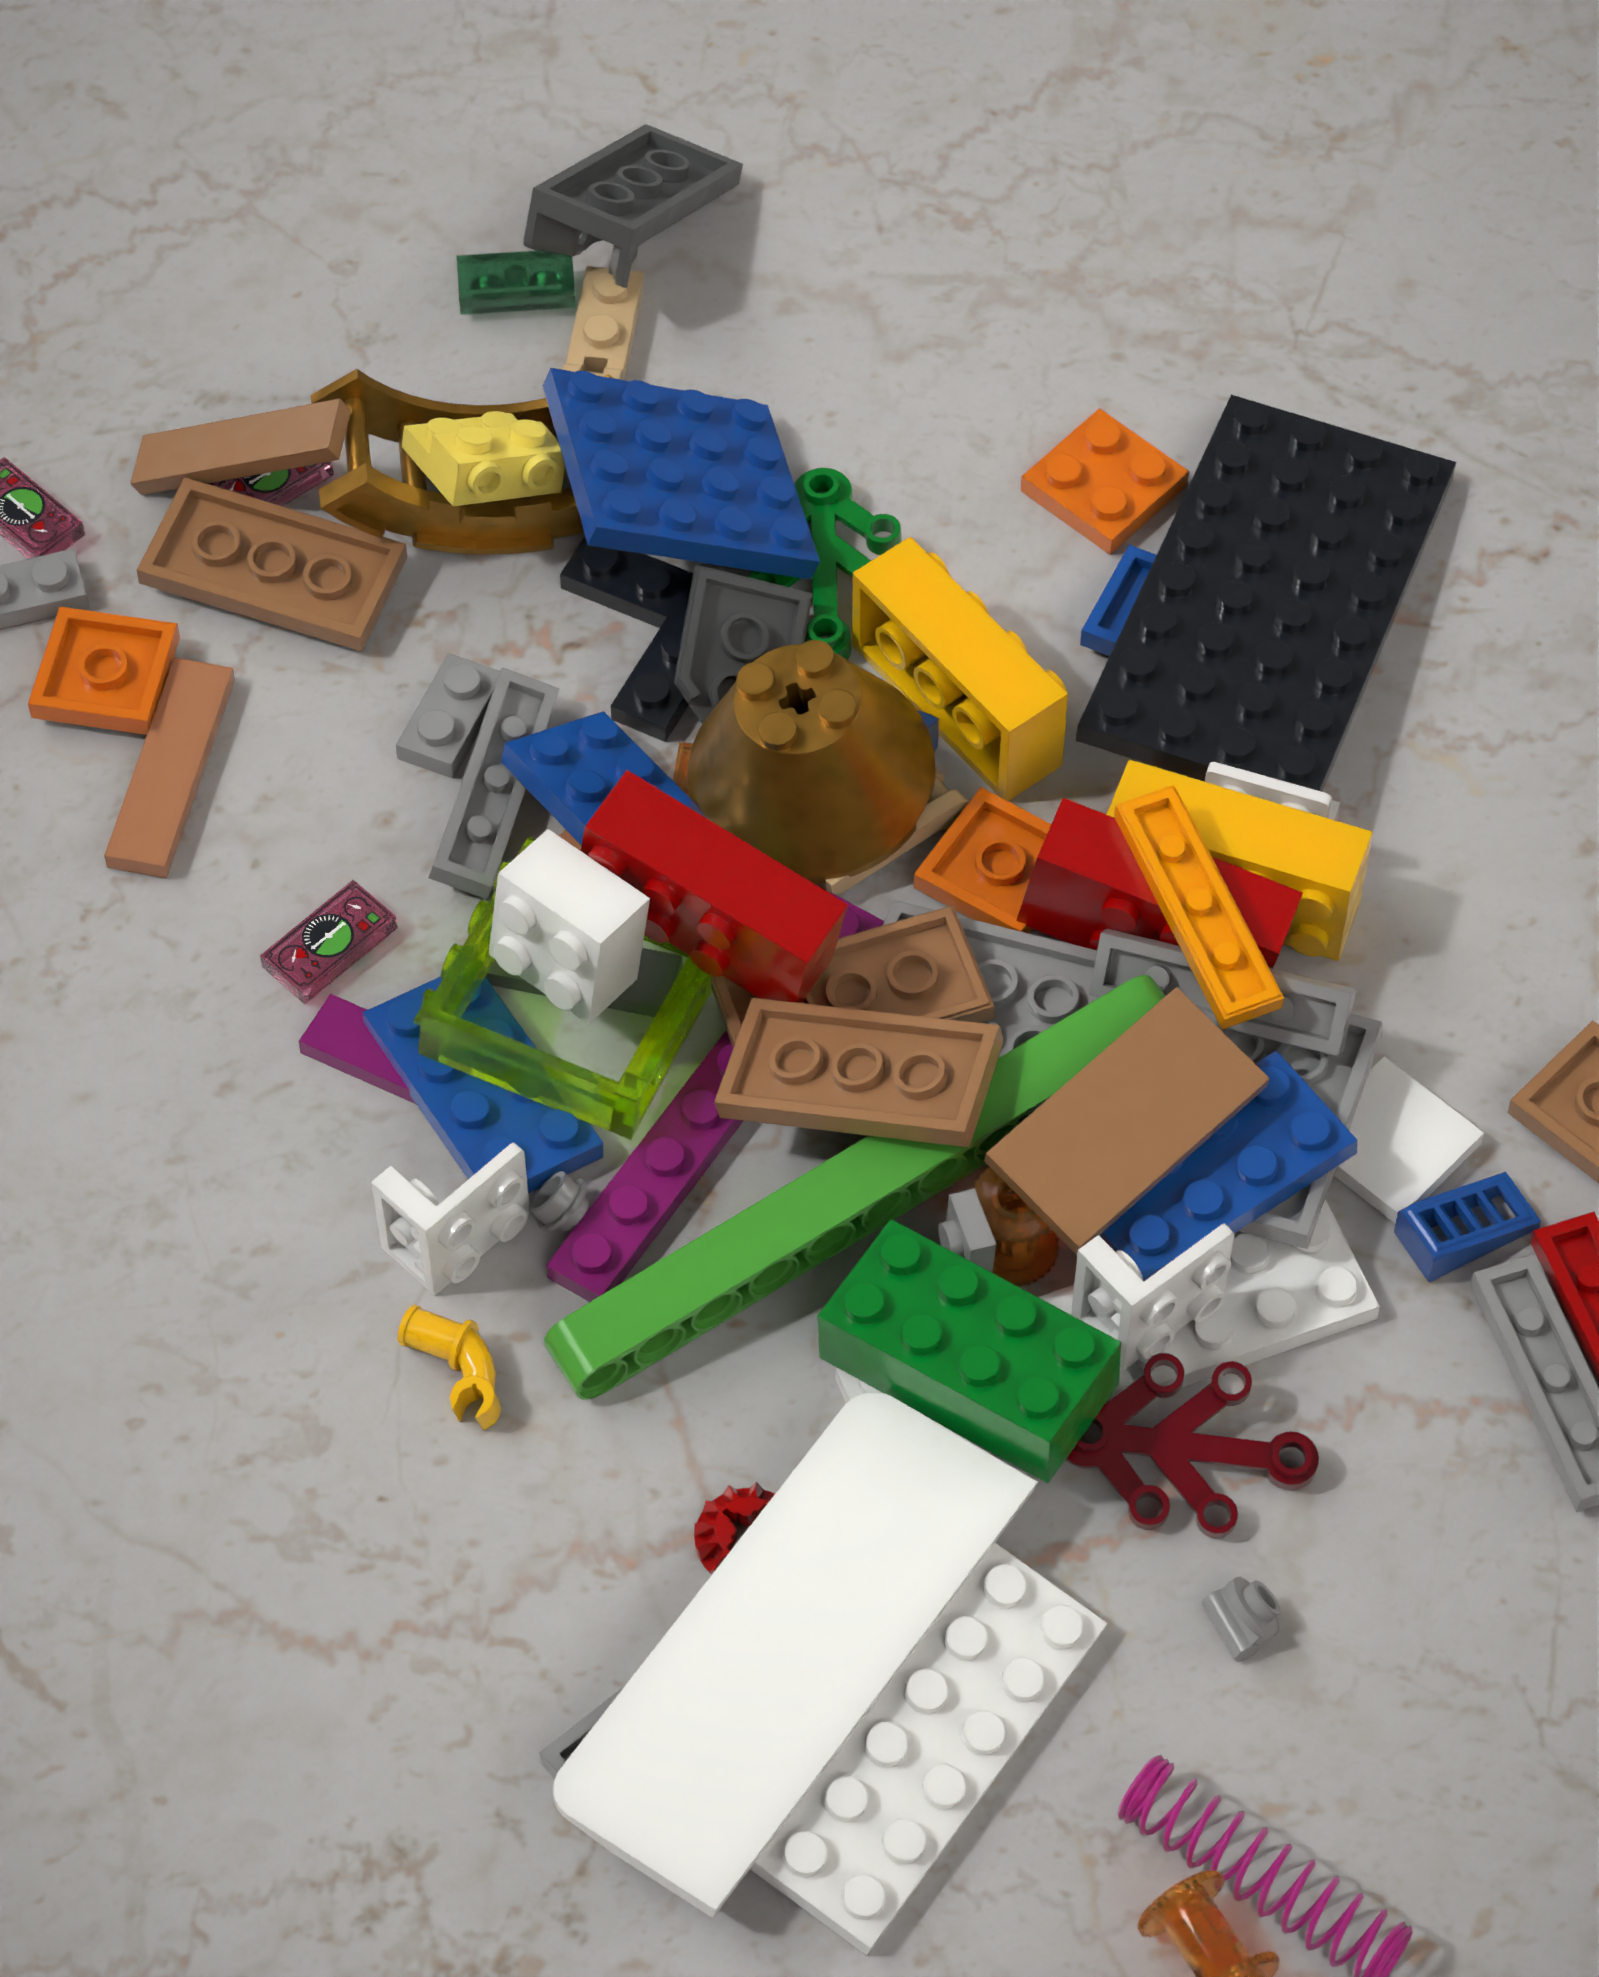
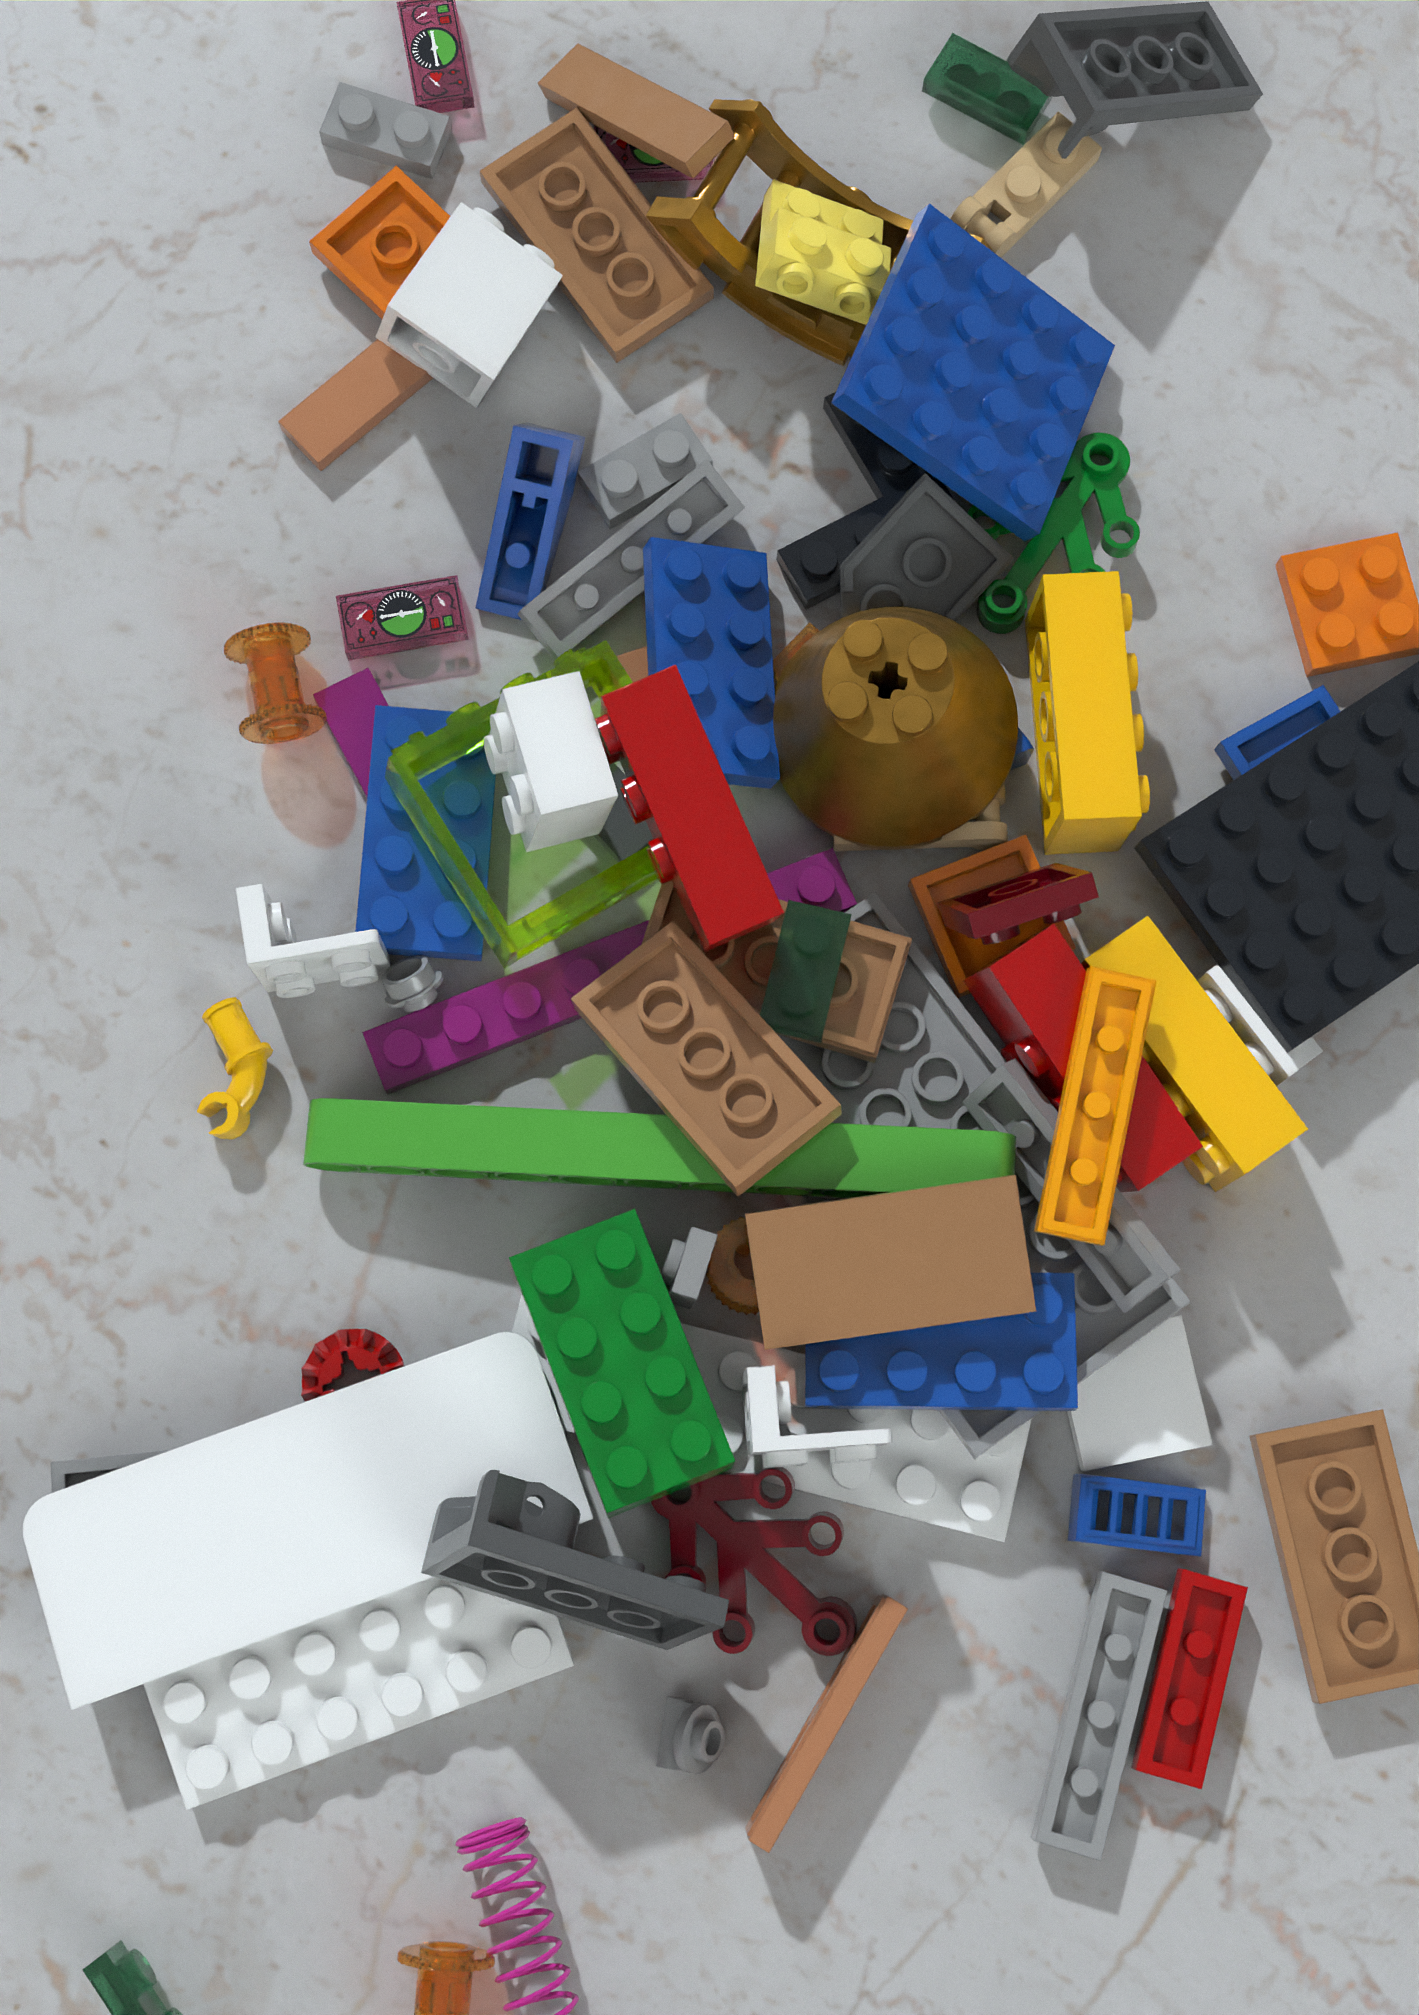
camera: 30 degrees right, 20 degrees up
(213, 669) = (468, 303): none -> white slope
(241, 1028) = (274, 683): none -> clear orange hose
(383, 799) = (529, 517): none -> blue slope
(885, 967) = (805, 970): none -> clear green plate
(1020, 820) = (1000, 907): none -> dark red plate
(1053, 1521) = (528, 1557): none -> dark grey plate
(1344, 1527) = (824, 1722): none -> nougat tile

